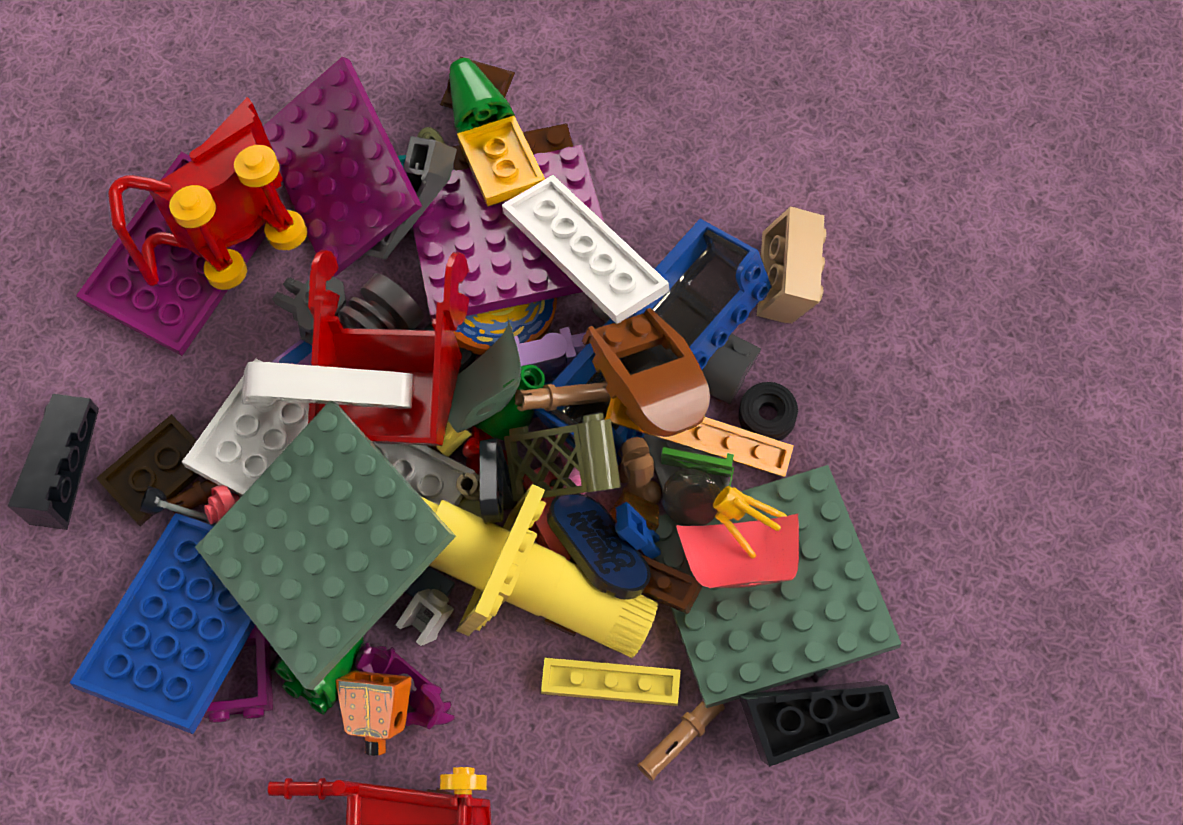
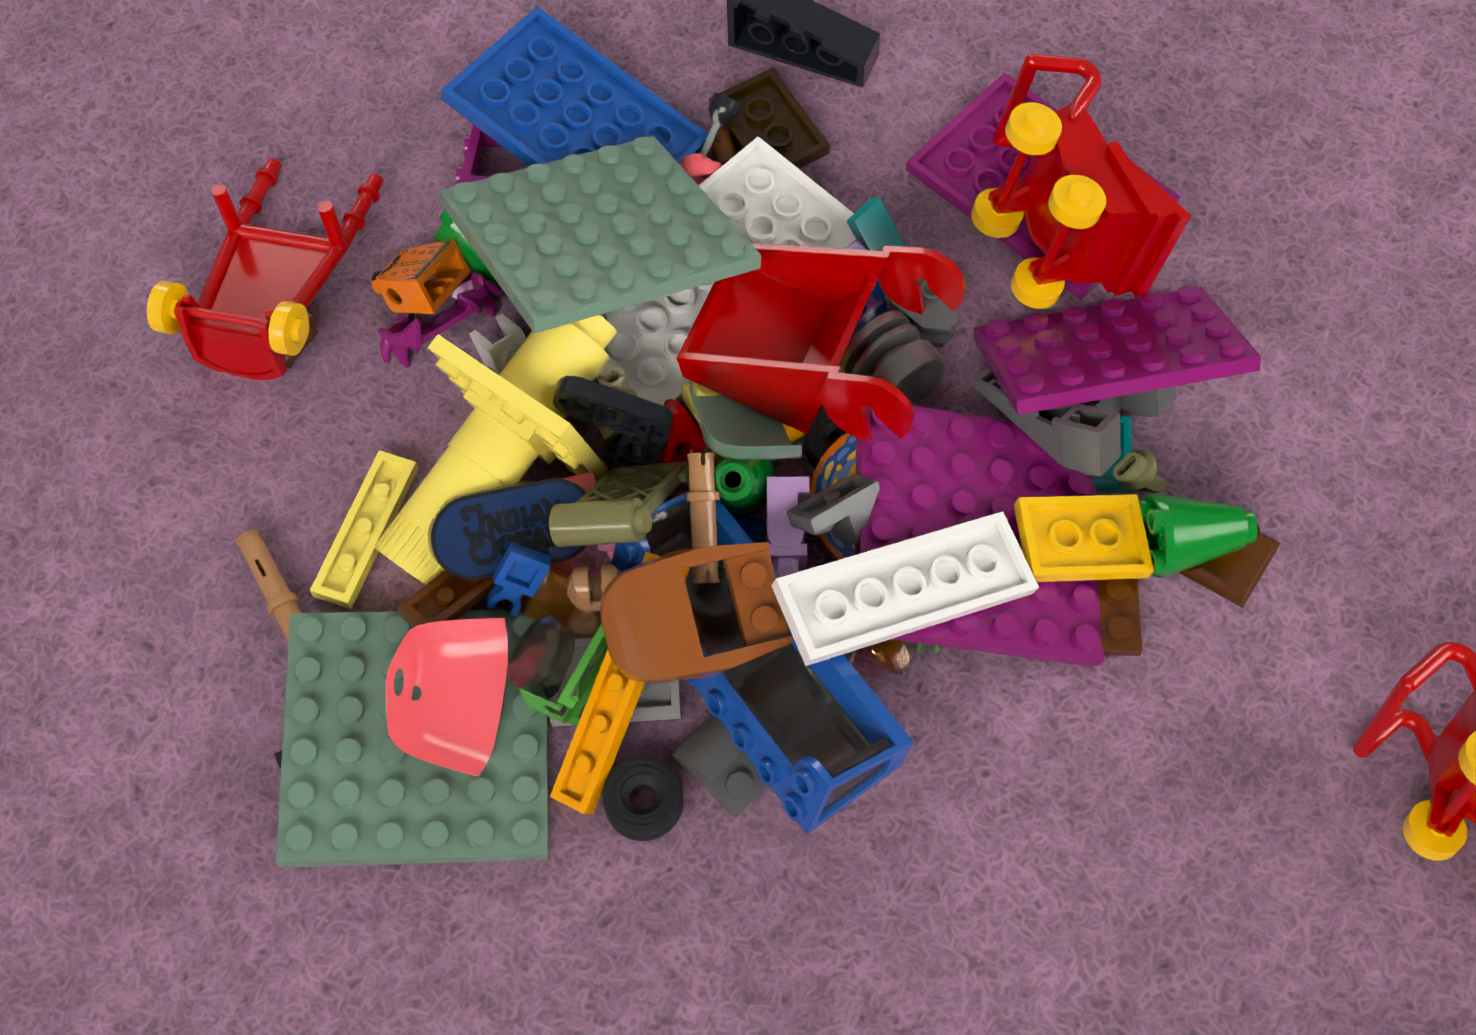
camera: 105 degrees right, 5 degrees down
(263, 348) = (874, 226): none -> teal tile
(319, 384) = (796, 202): white beam -> none
(529, 309) = (838, 508): none -> dark grey slope
(734, 504) = (502, 687): yellow plant -> none
(793, 264) = (834, 876): tan brick -> none
(812, 717) = (230, 733): black wedge -> none

